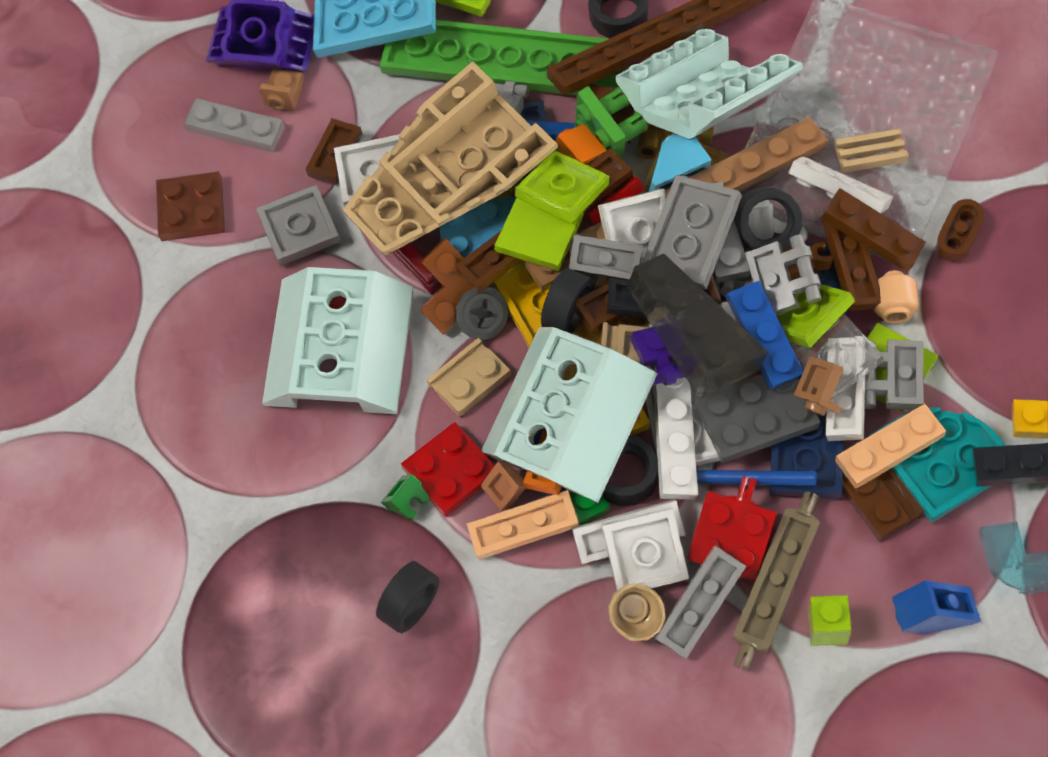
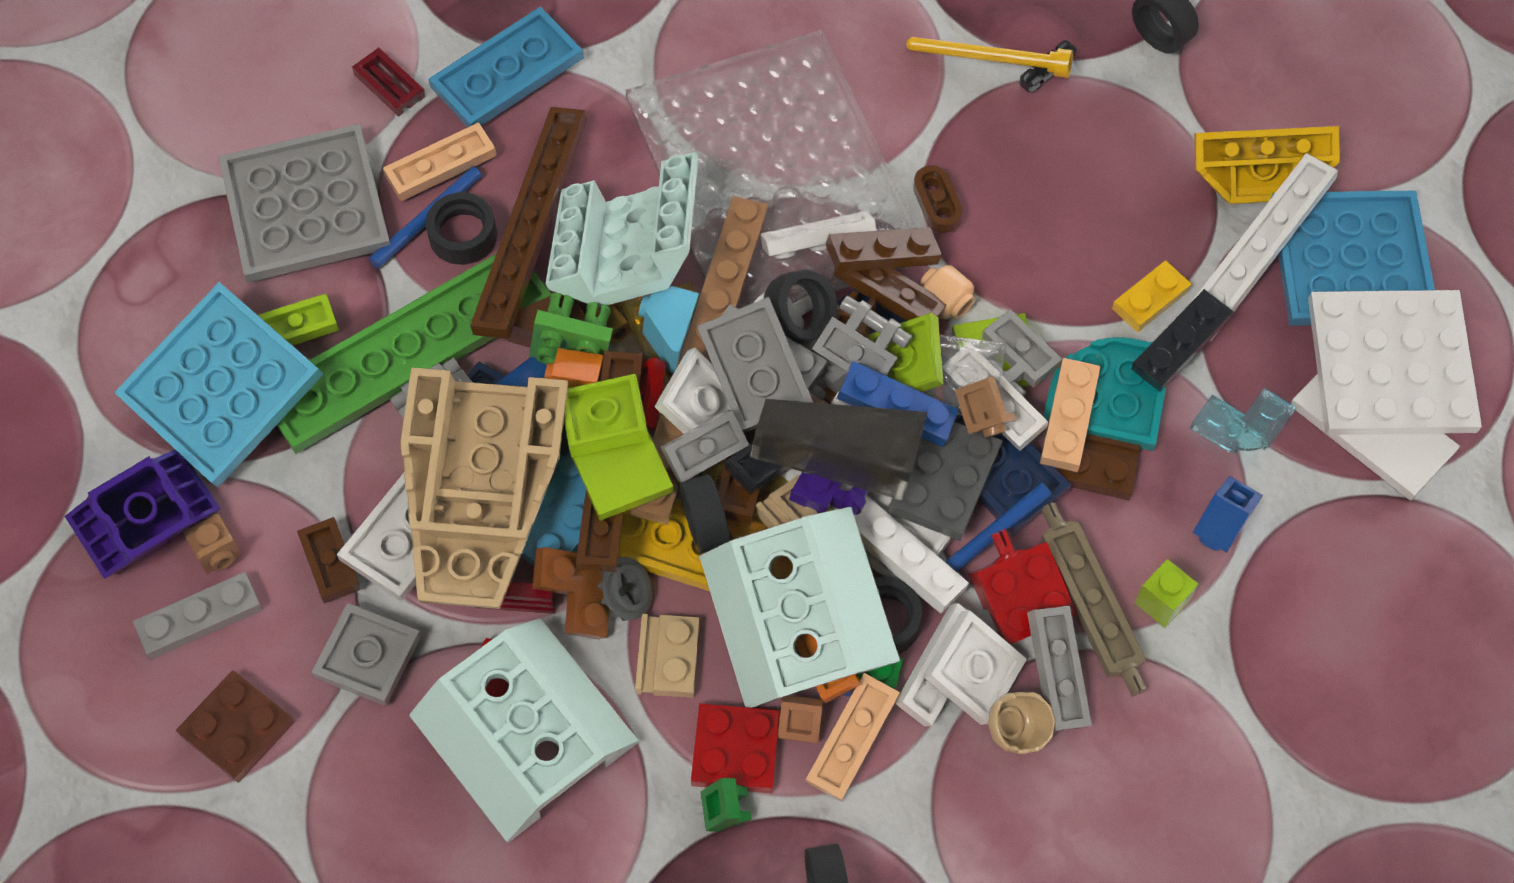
camera: 55 degrees left, 0 degrees up
(870, 145) = (795, 181): tan tile -> none

